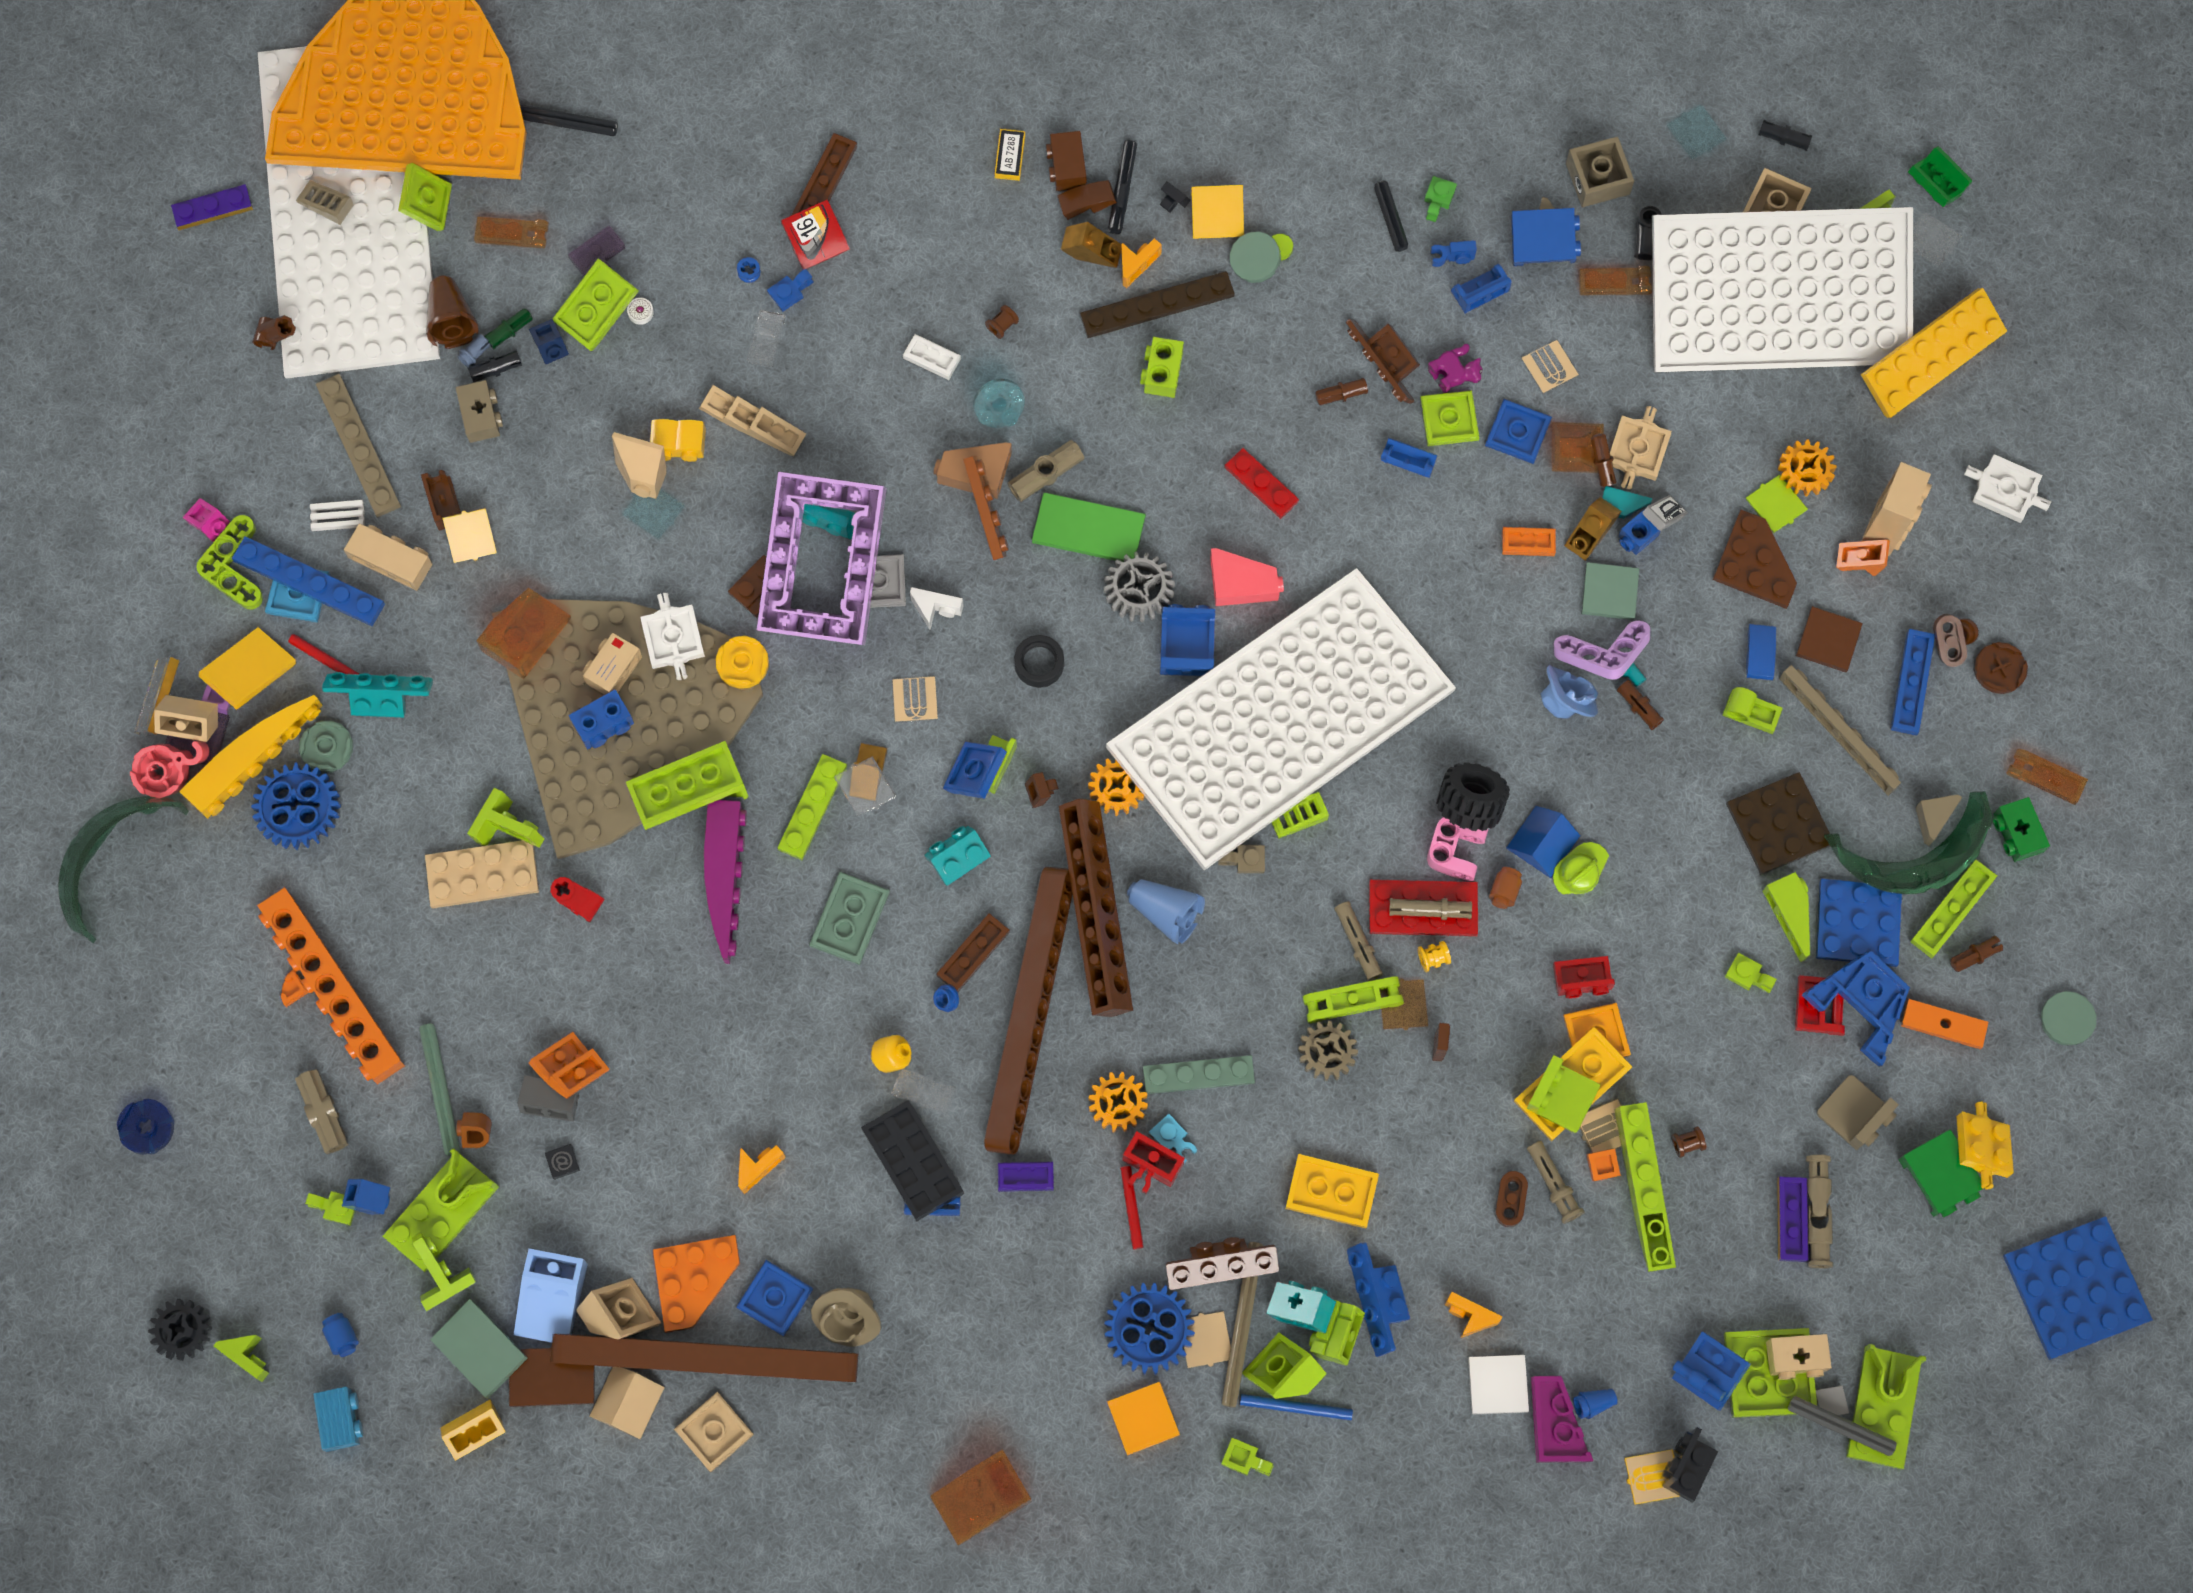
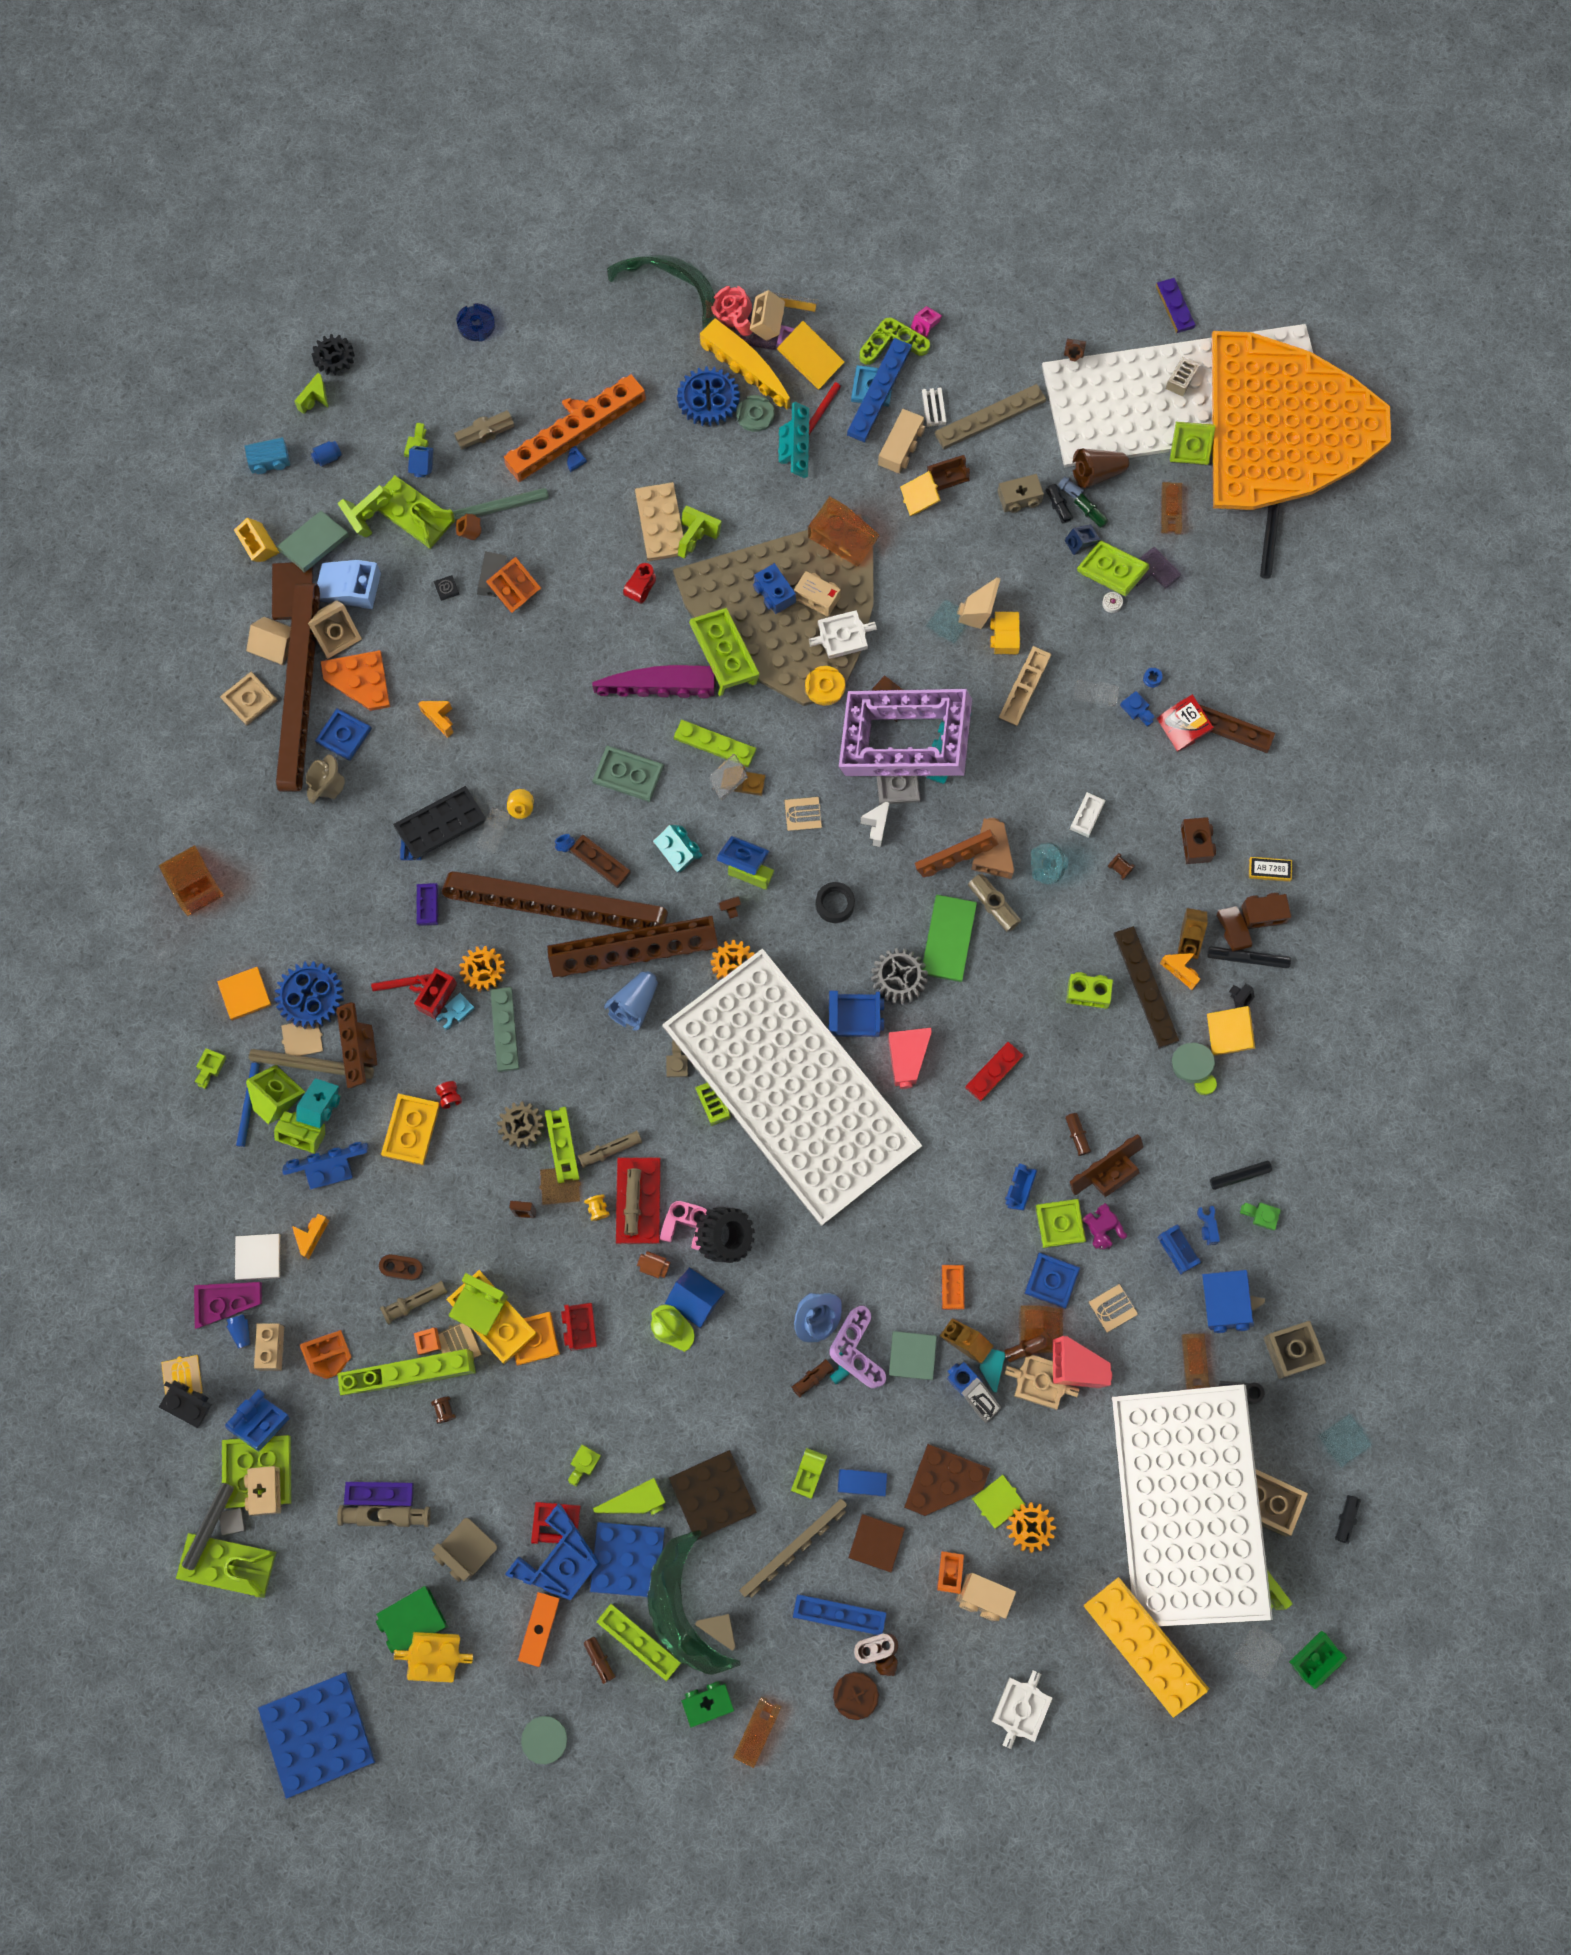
camera: 90 degrees right, 0 degrees up
(376, 988) = (575, 459): none -> blue tile
(962, 241) = (1200, 829): none -> reddish brown brick
(1281, 1144) = (448, 1094): none -> red wheel
(1616, 1360) = (269, 1347): none -> tan brick
(1622, 1289) = (326, 1354): none -> orange slope
(1623, 403) = (1078, 1365): none -> coral slope

